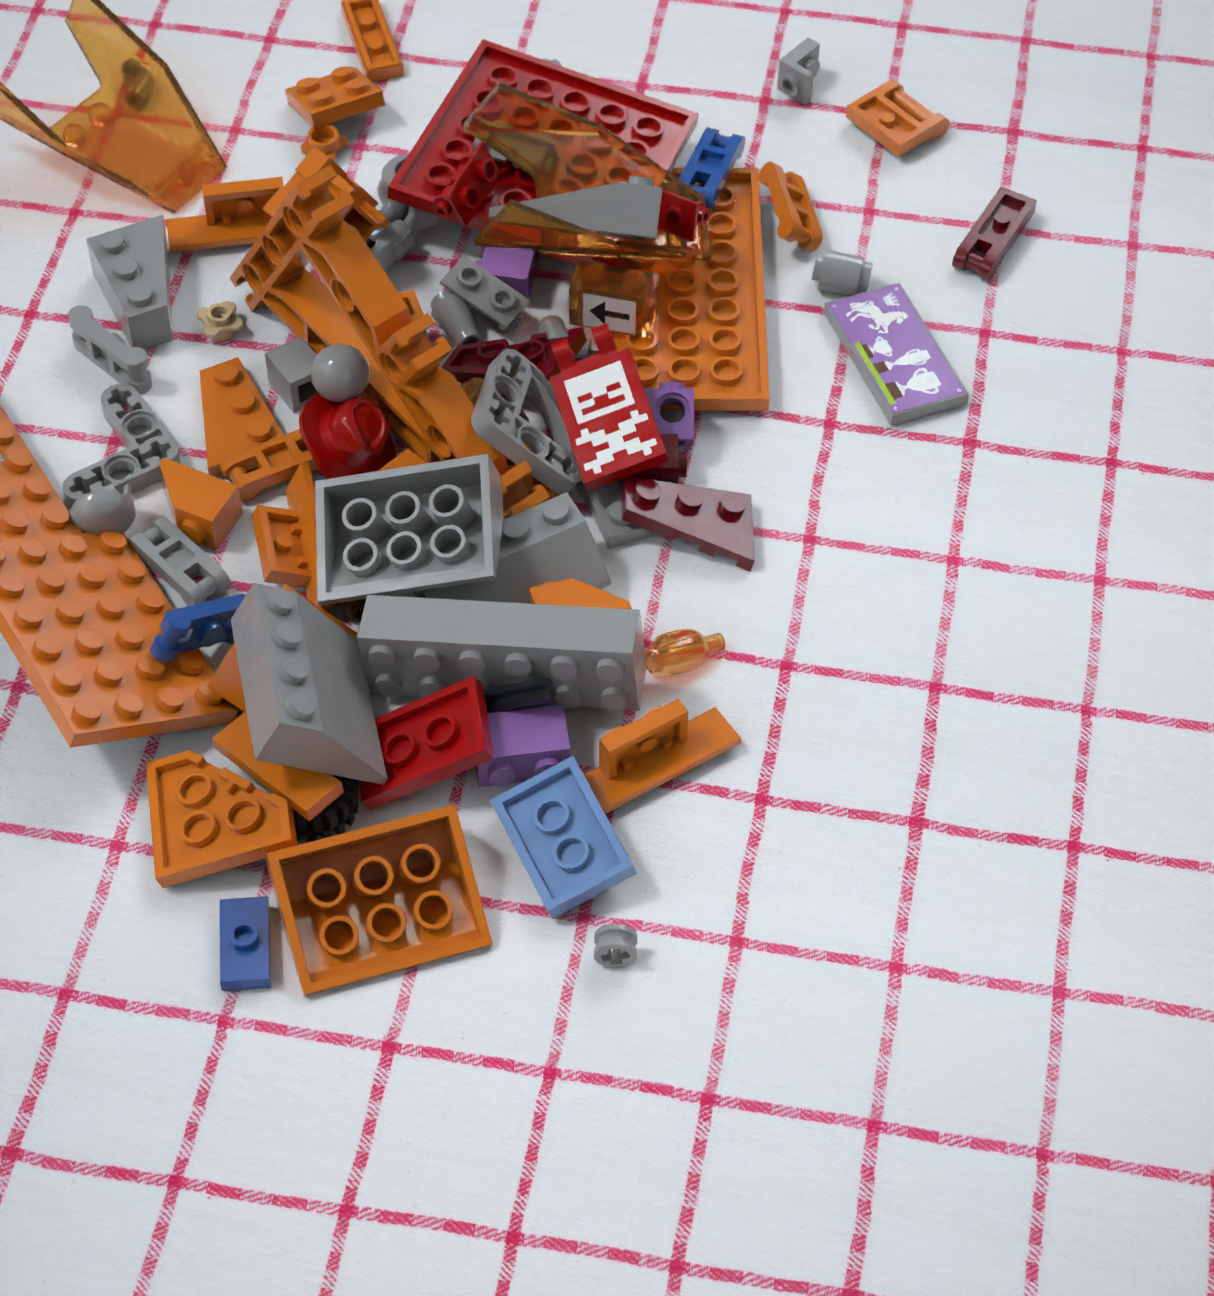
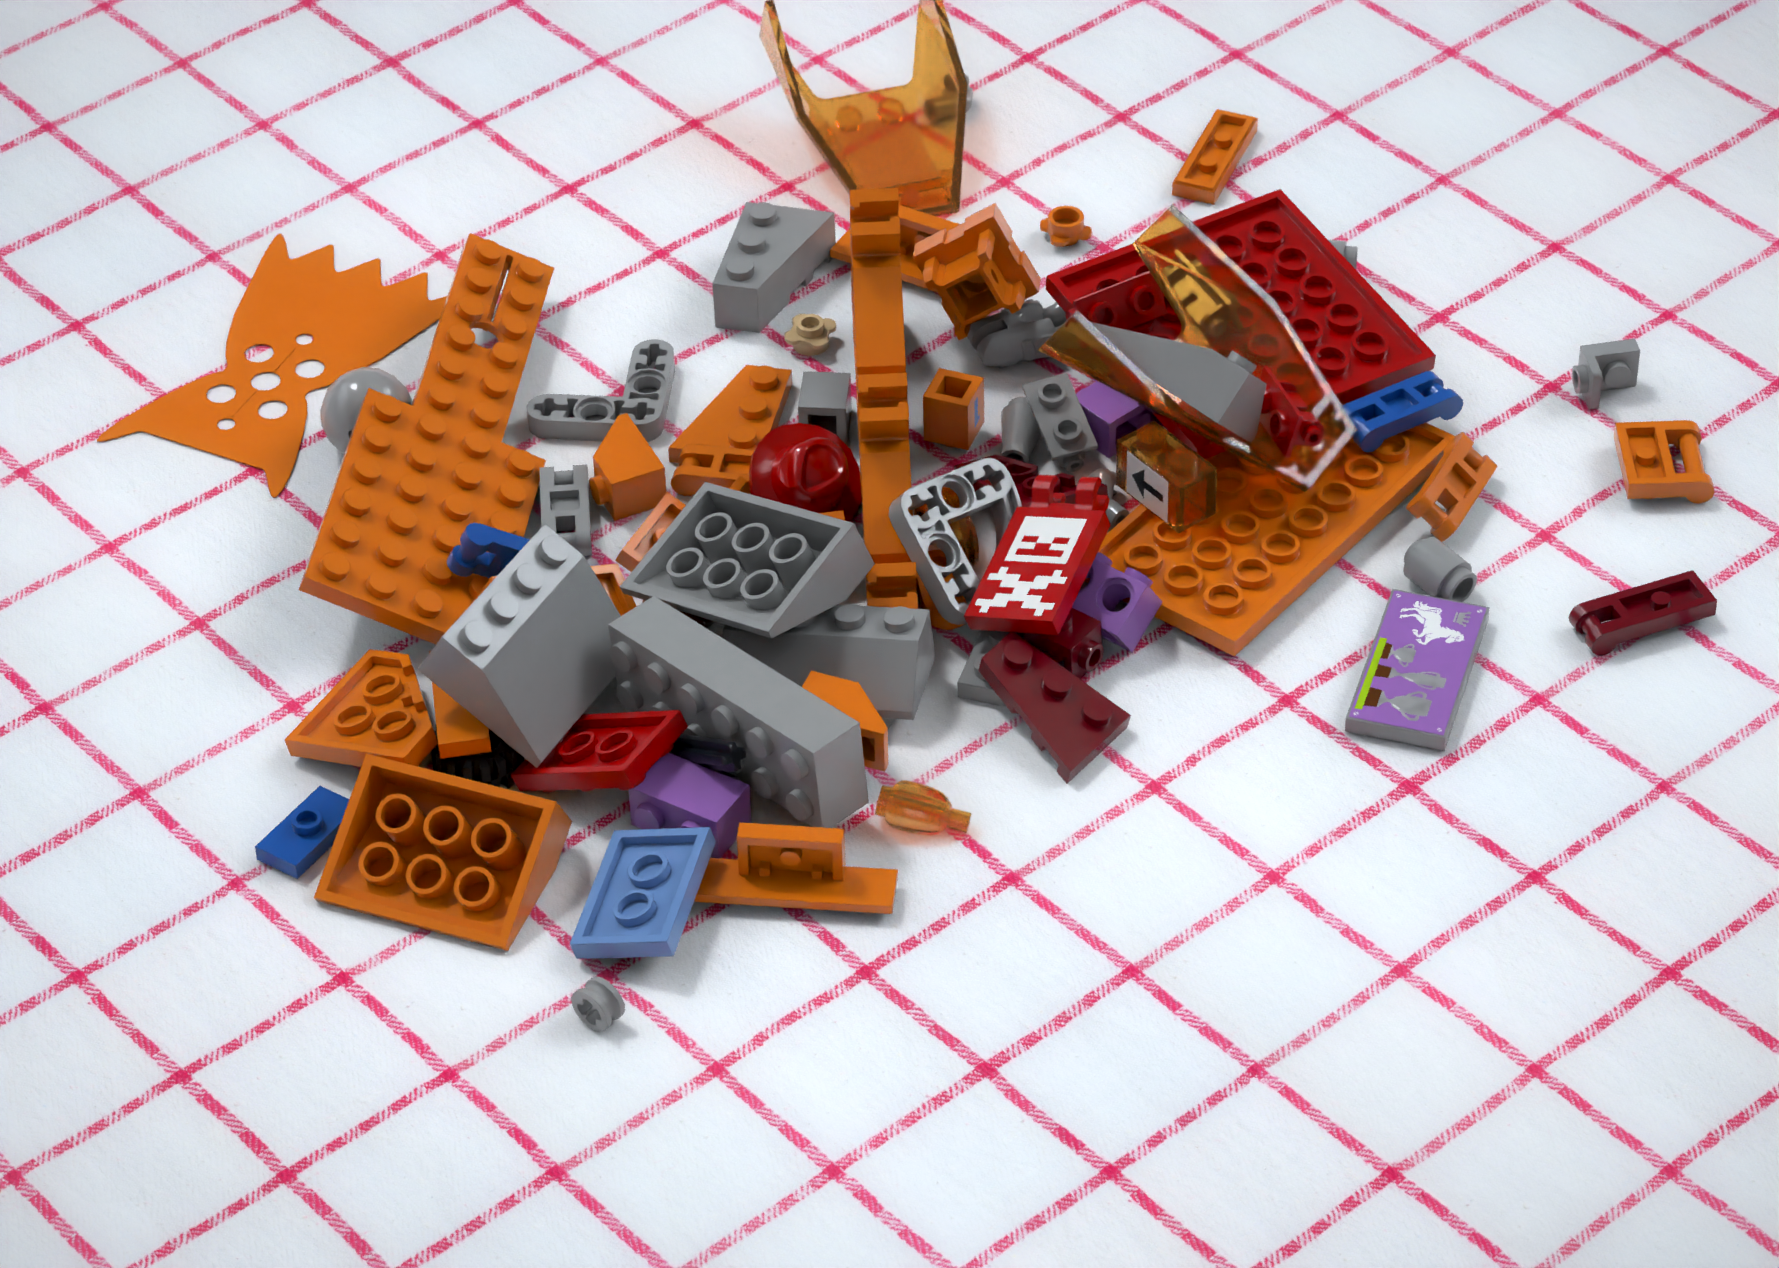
camera: 40 degrees right, 10 degrees down
(104, 511) = (538, 433): light grey hair -> none
(109, 350) = (685, 310): light grey plate -> none
(334, 96) = (1115, 189): orange plate -> none
(340, 372) = (830, 409): light grey piece -> none

